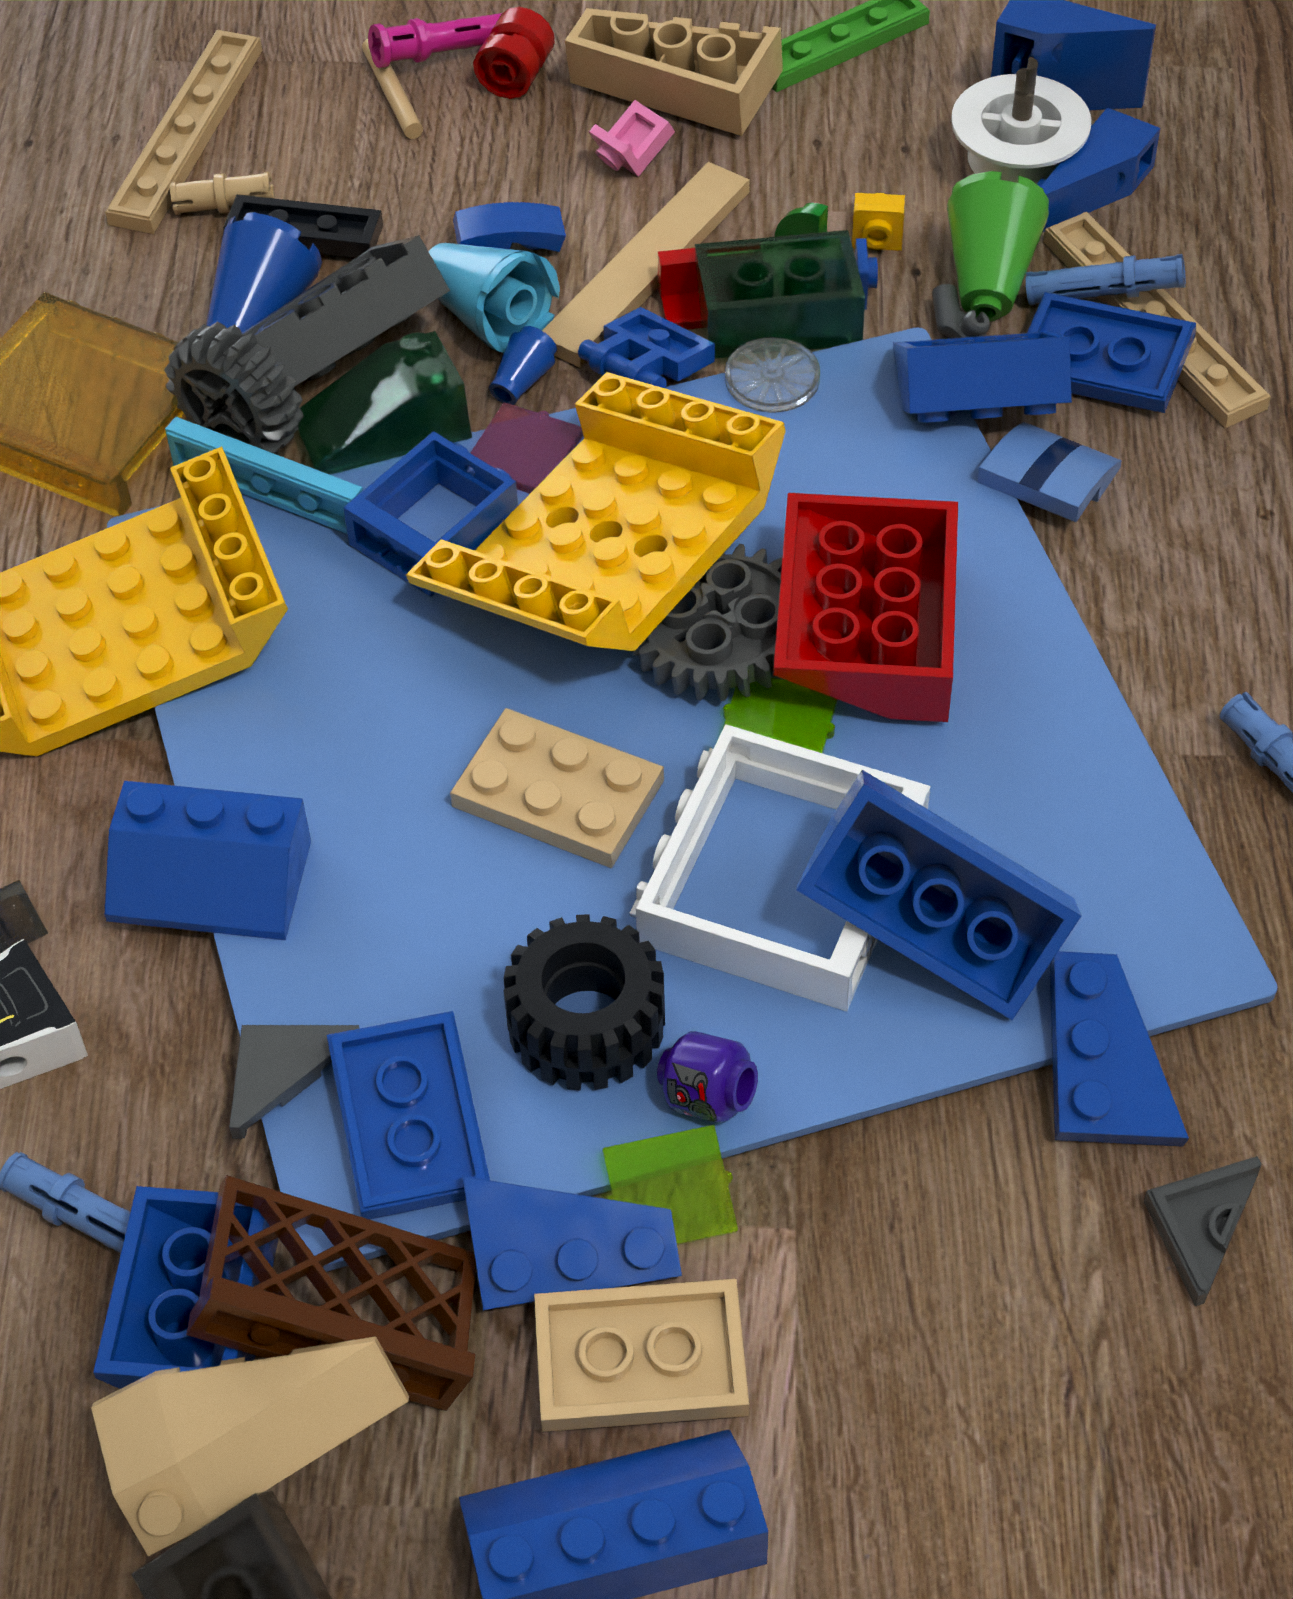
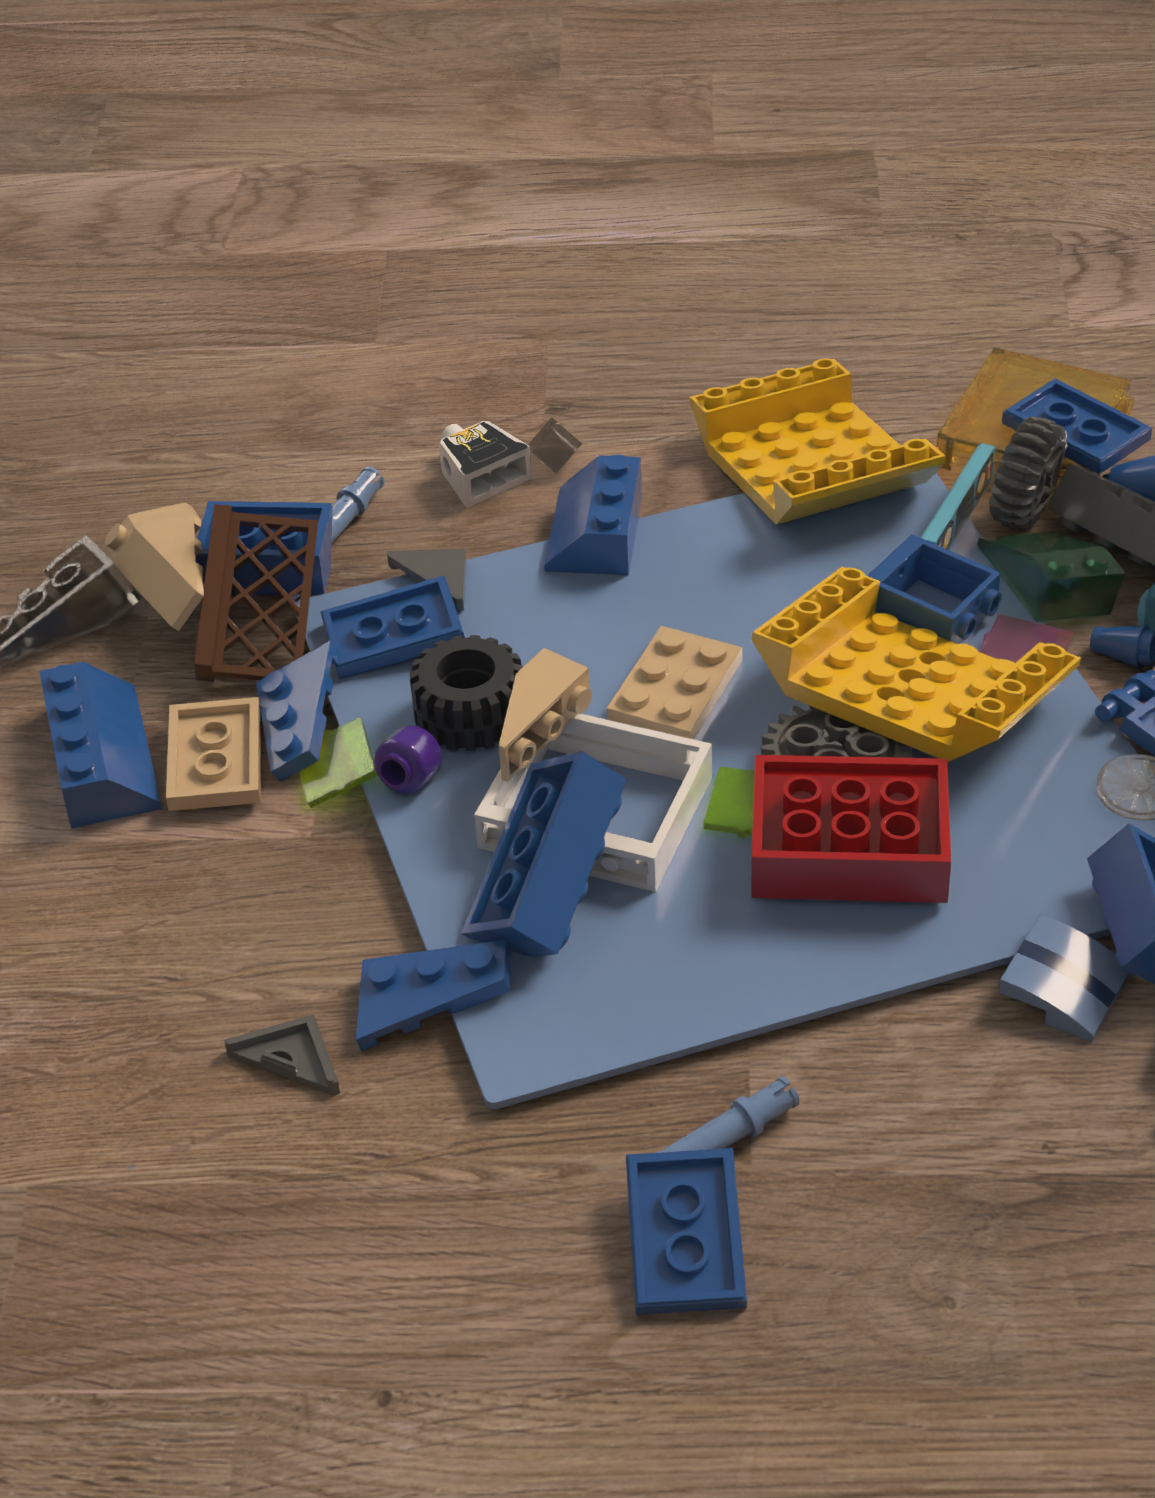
camera: 90 degrees right, 10 degrees down
(129, 345) = (1094, 430): none -> blue tile
(676, 889) = (542, 702): none -> tan slope

